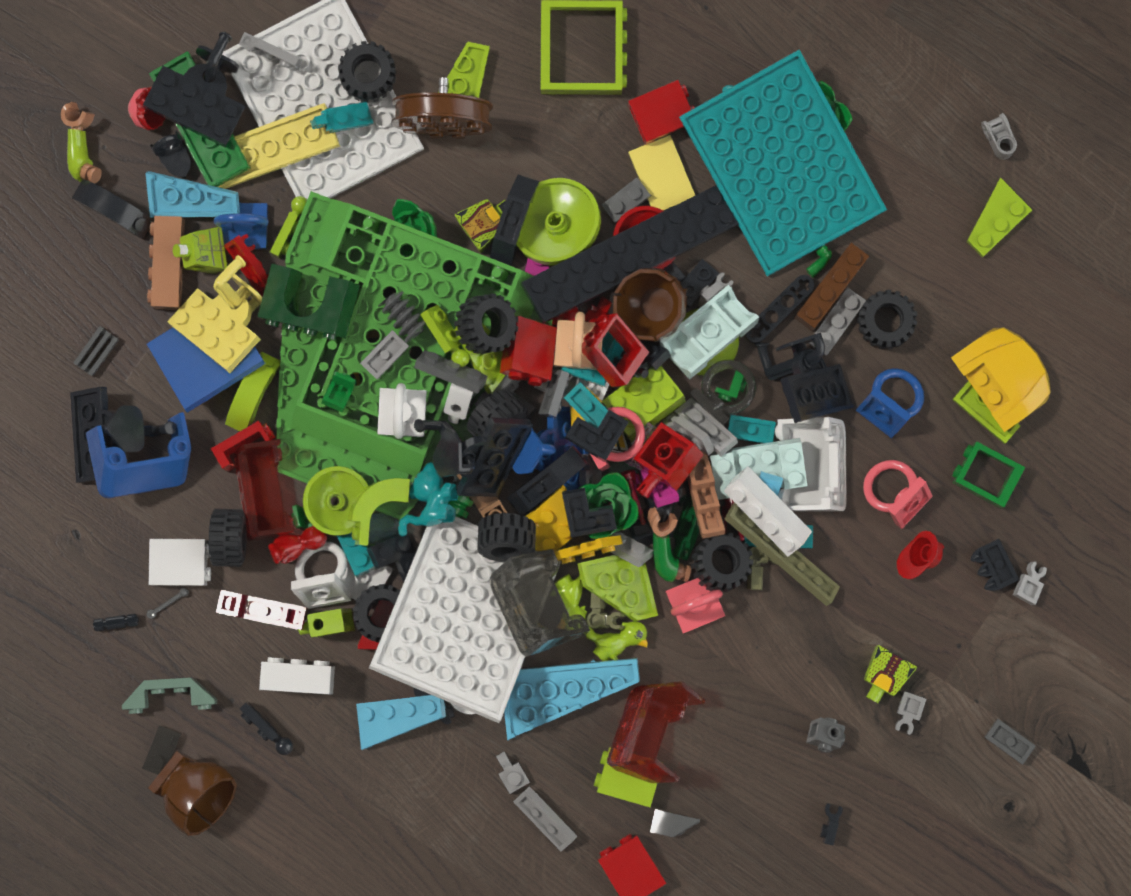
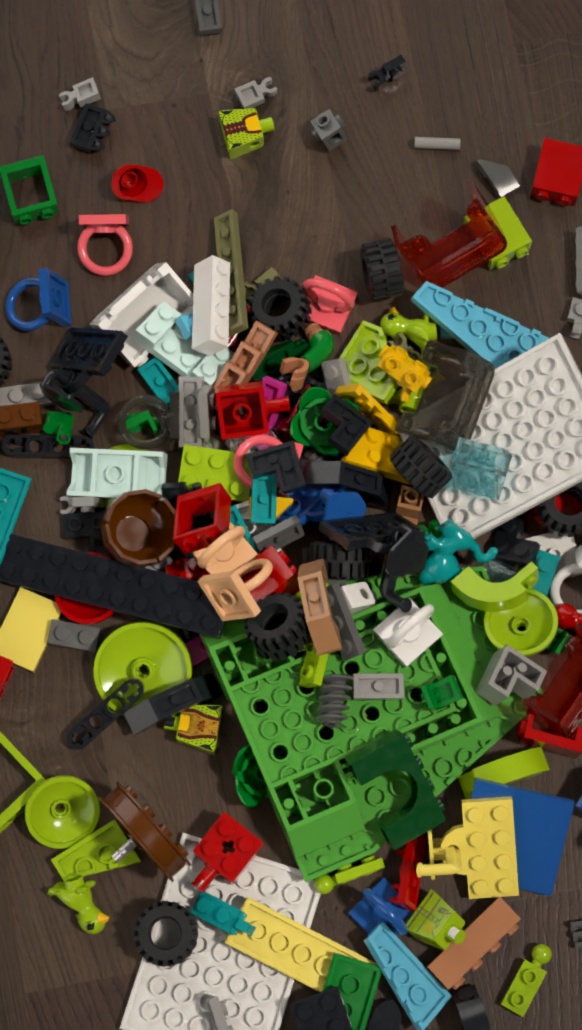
camera: 135 degrees left, 10 degrees down
(110, 274) = (527, 981): none -> lime plate
(312, 454) = (507, 673): none -> light grey brick
(377, 149) = (227, 865): none -> red brick
(449, 40) = (78, 896): none -> lime animal
(464, 575) = (480, 468): none -> clear light blue slope
(476, 360) = (317, 610): none -> medium nougat slope
(503, 79) = (64, 826): none -> lime dish
(538, 311) = (231, 595): none -> light nougat tile
(551, 170) = (104, 711): none -> black beam
(587, 596) = (407, 372): none -> yellow brick
(679, 661) = (382, 269): none -> black tyre
(736, 811) = (437, 143): none -> light grey piece
(785, 331) = (60, 424): none -> green piece

